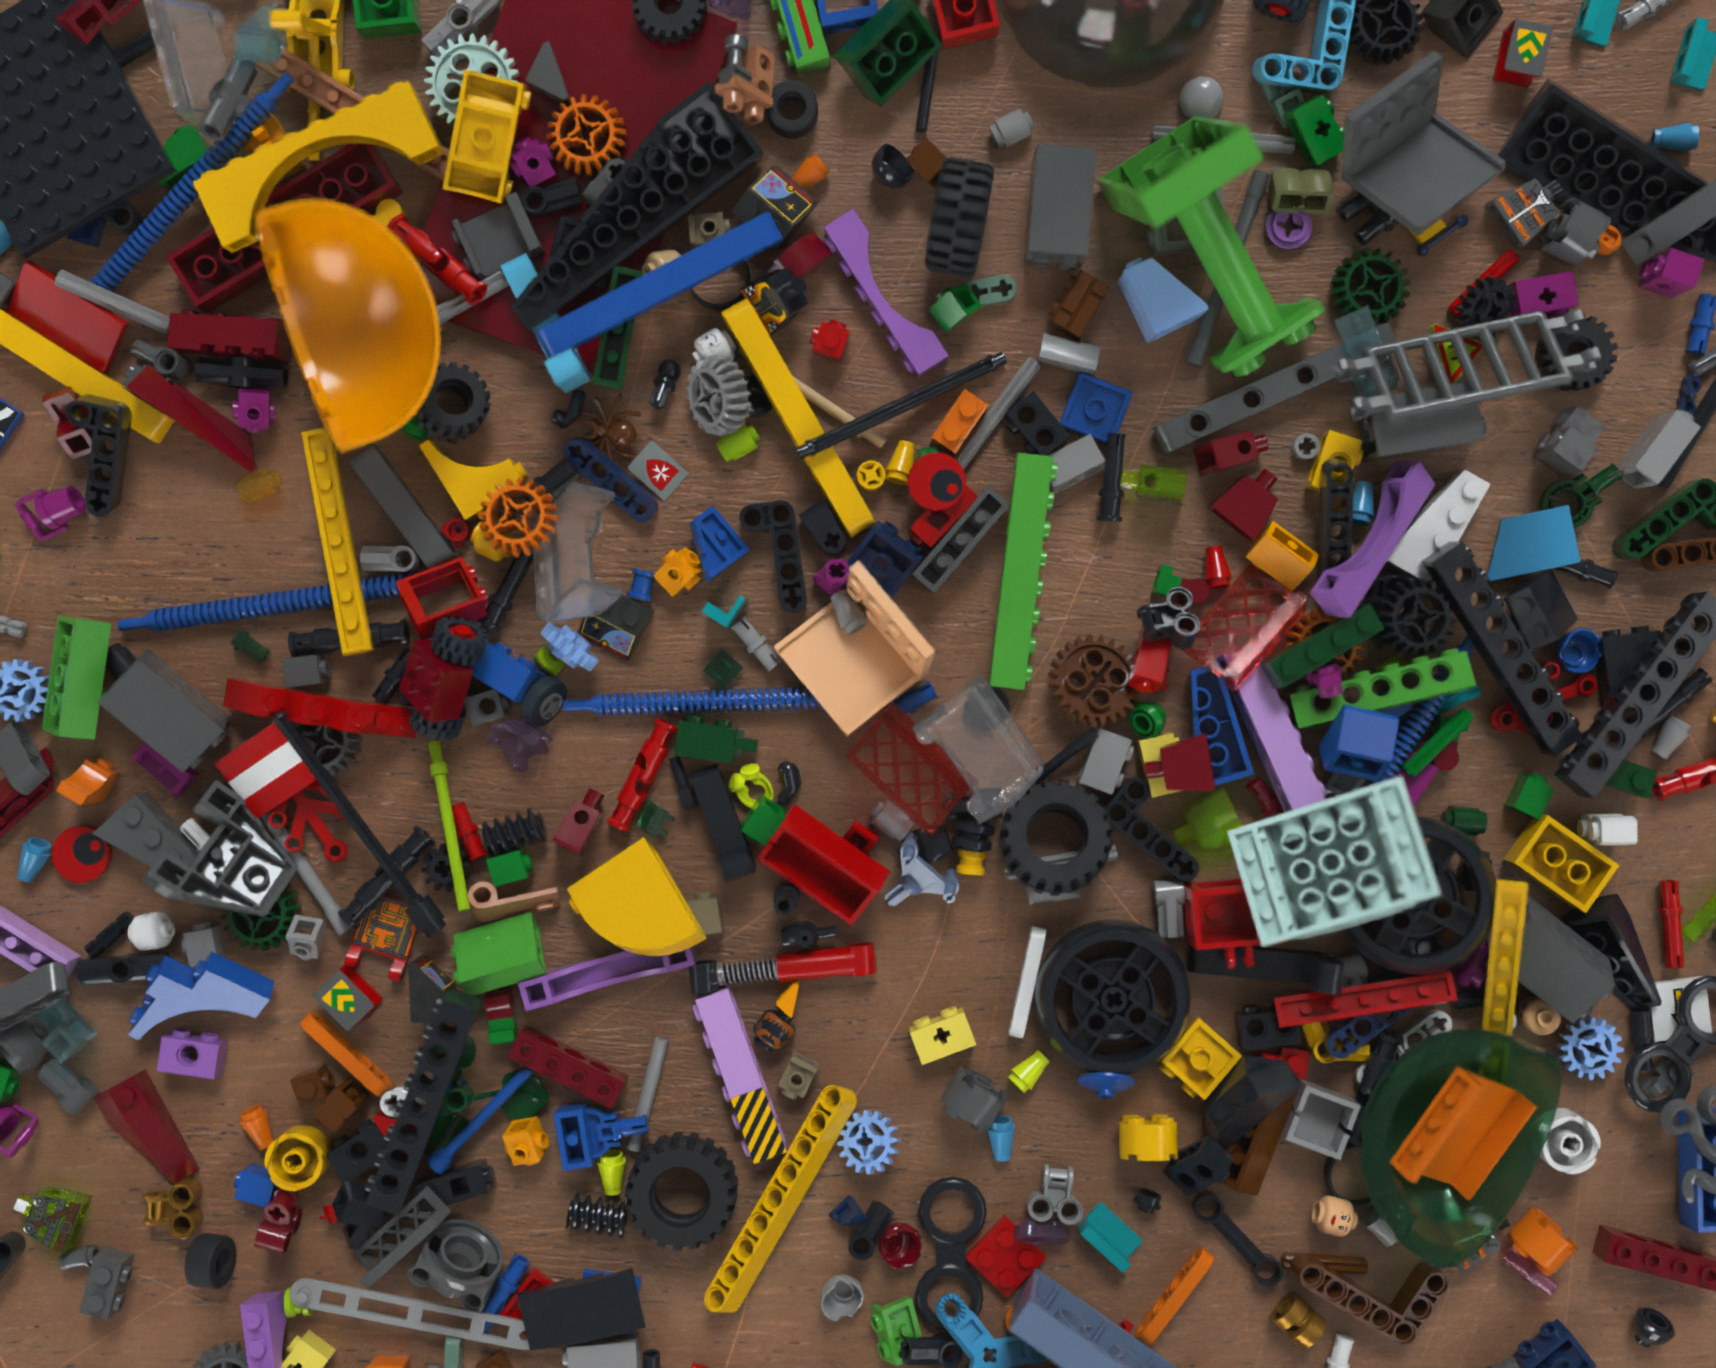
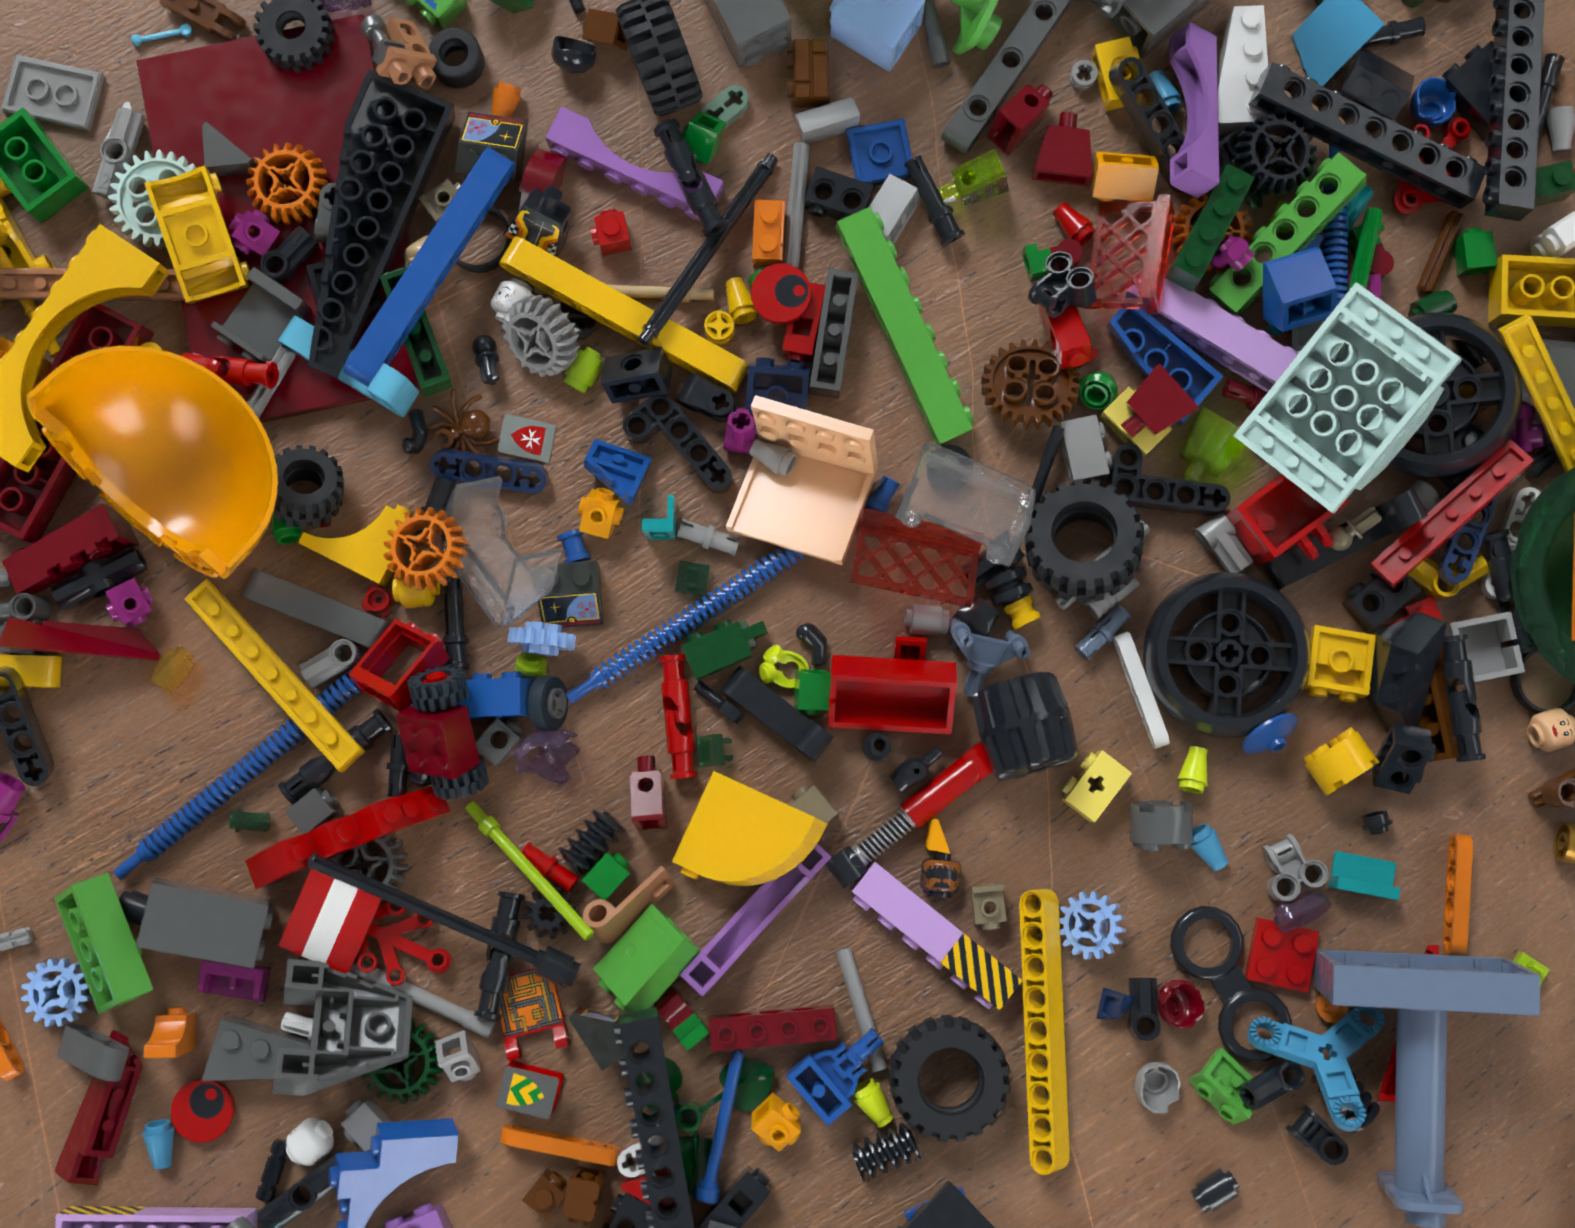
camera: 30 degrees left, 5 degrees down
(777, 476) = (636, 375): none -> black brick
(913, 957) = (1025, 725): none -> black wheel
(924, 319) = (682, 160): none -> black piece
(1025, 917) = (1102, 632): none -> sand blue pin
(1238, 1239) = (1480, 806): black piece -> none
(1265, 961) = (1357, 526): none -> dark tan axle
(1271, 1159) = (1463, 707): none -> black piece
(1502, 777) = (1440, 252): none -> reddish brown axle

